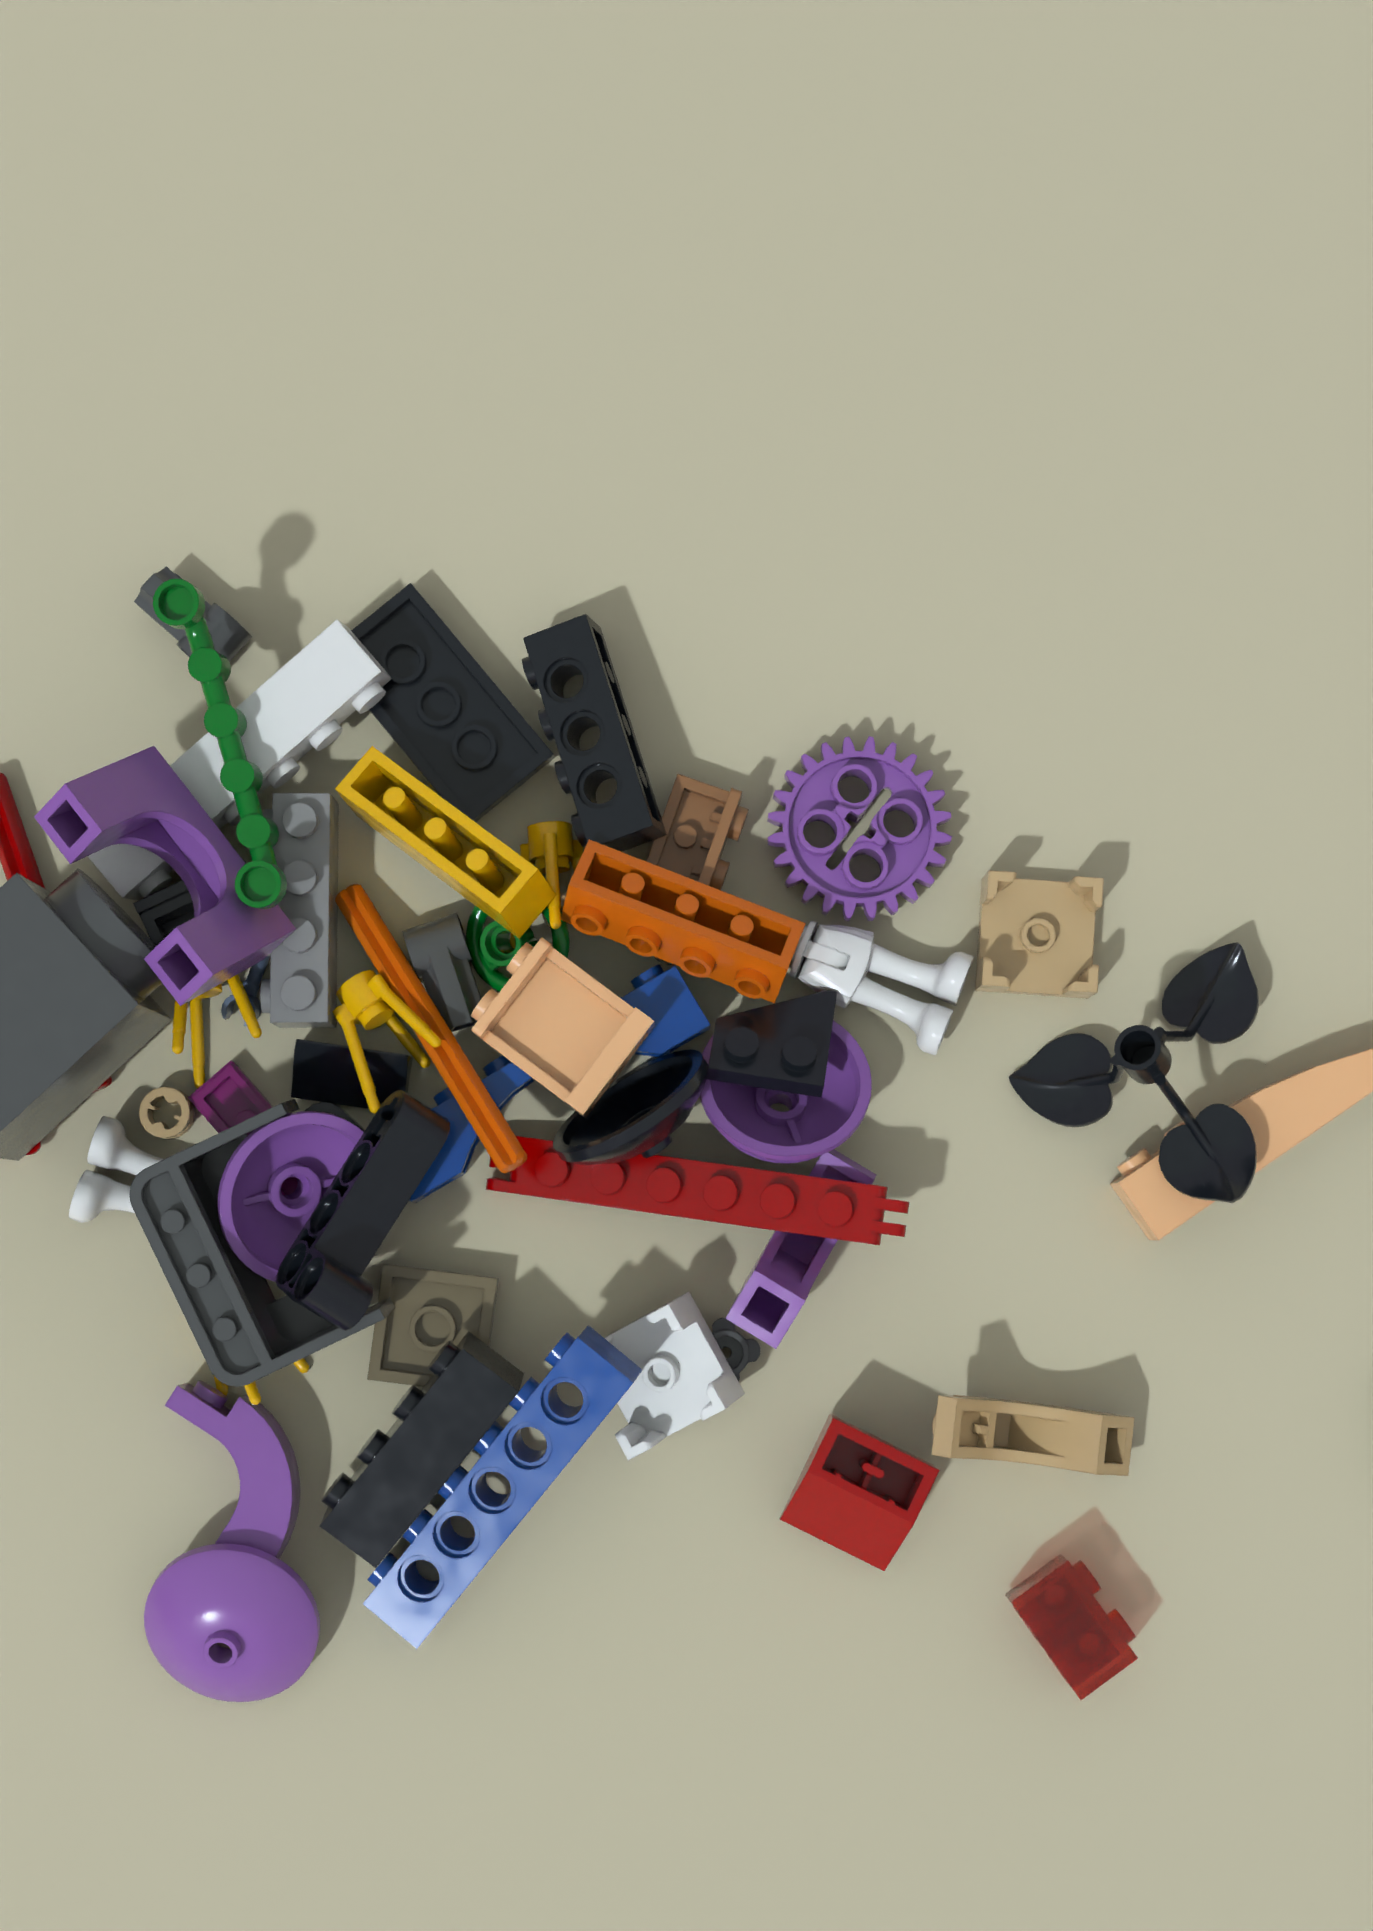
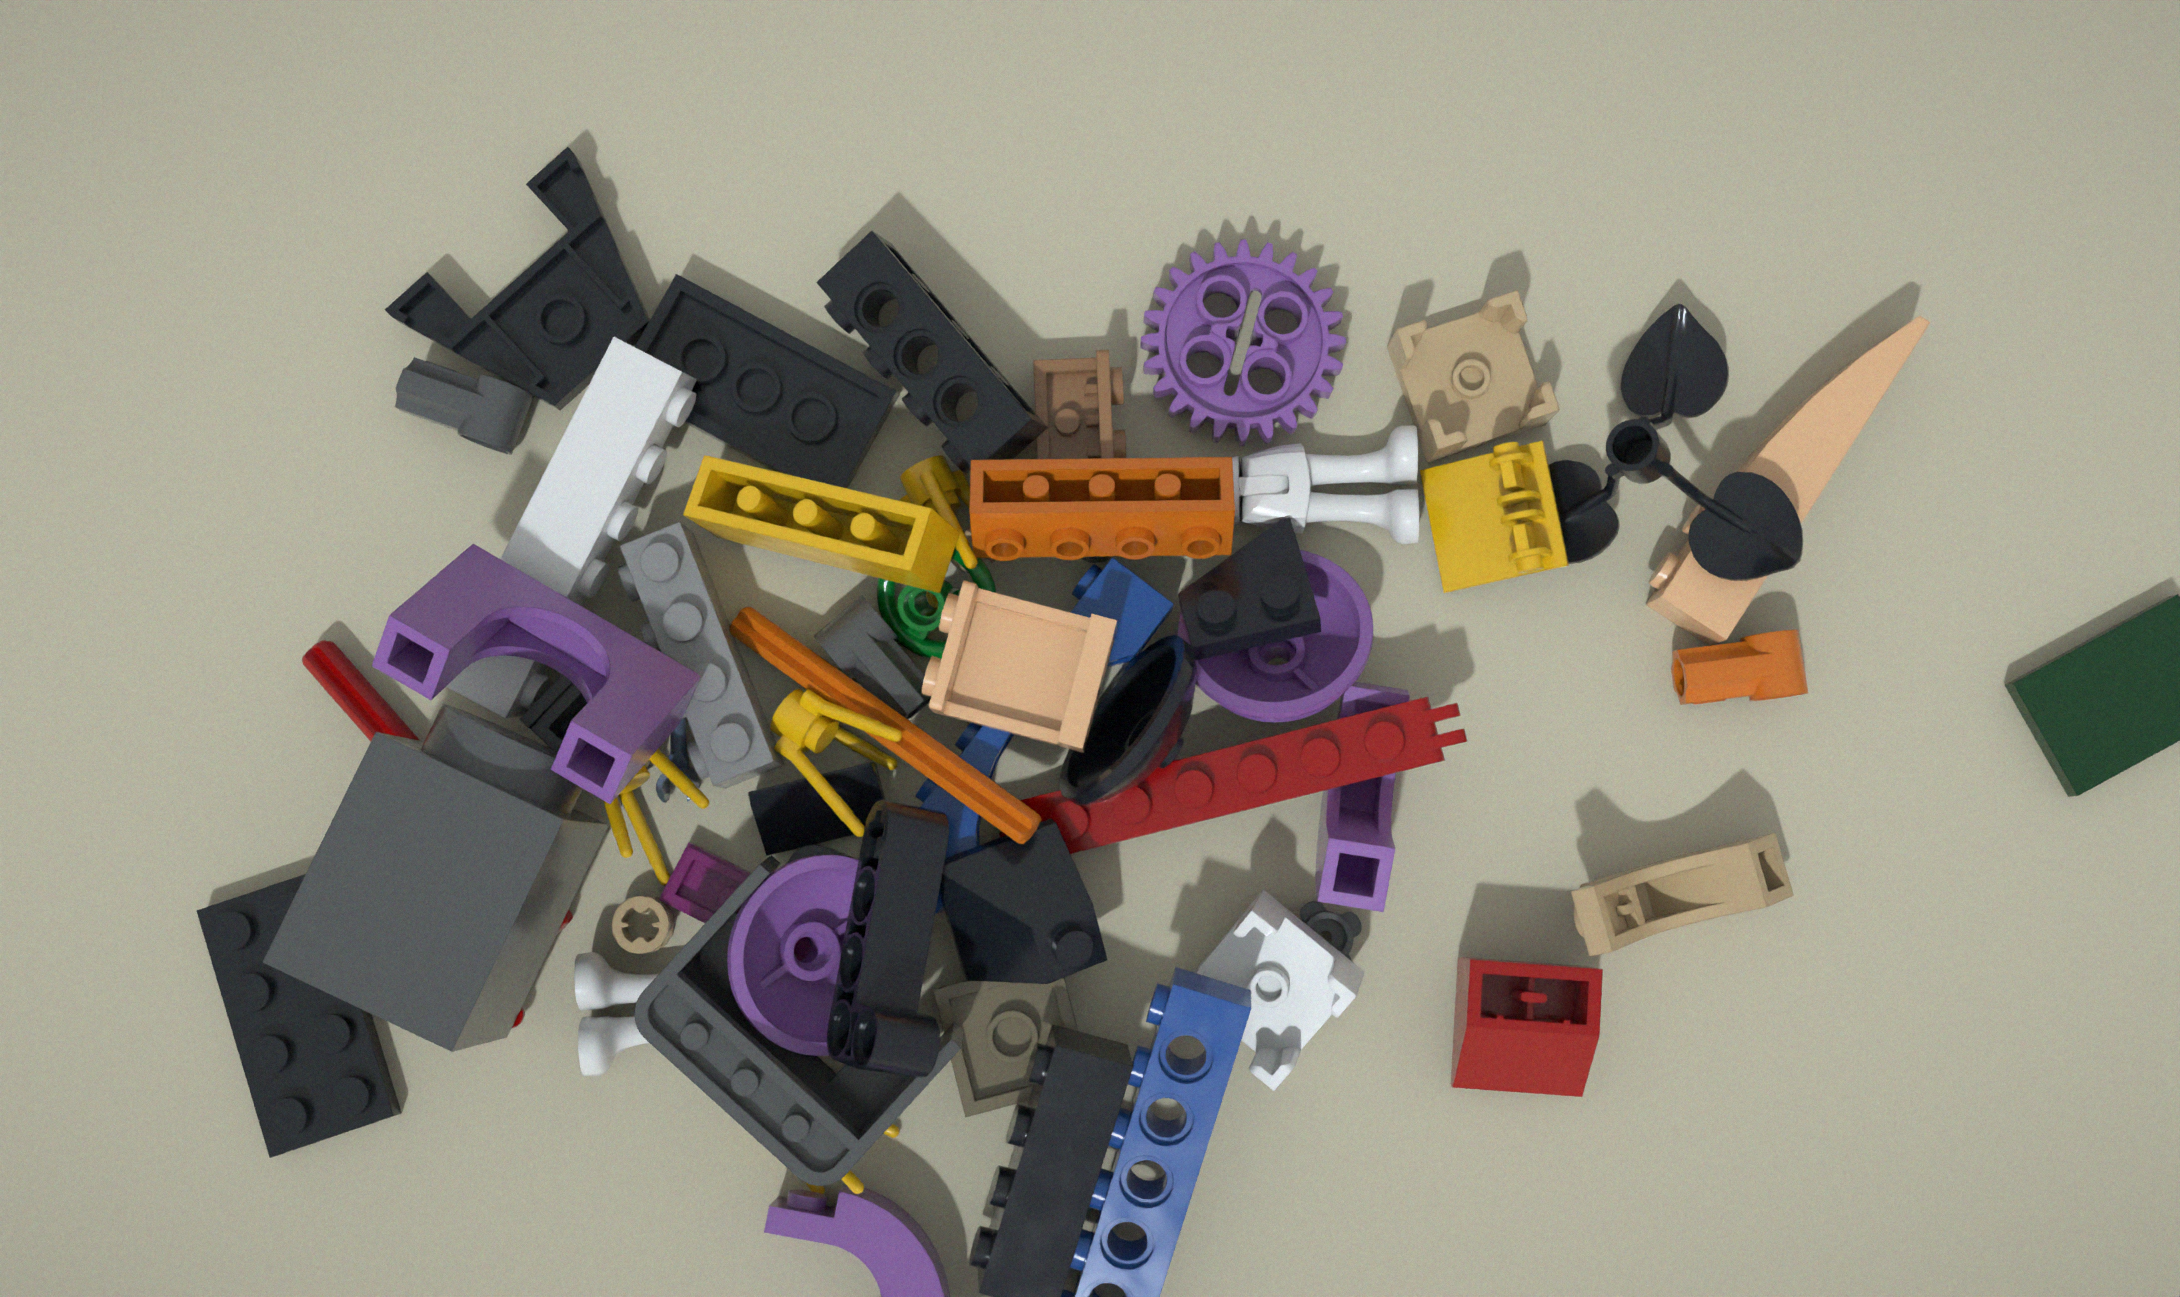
camera: 20 degrees left, 0 degrees up
(261, 881) = (642, 639): green bar -> none
(297, 579) = (555, 316): none -> black wing
(480, 1227) = (1020, 910): none -> black slope
(1009, 1059) = (1494, 516): none -> yellow hinge
(1072, 1625) = (1800, 1074): clear red brick -> none
(1177, 1273) = (1756, 668): none -> orange piece

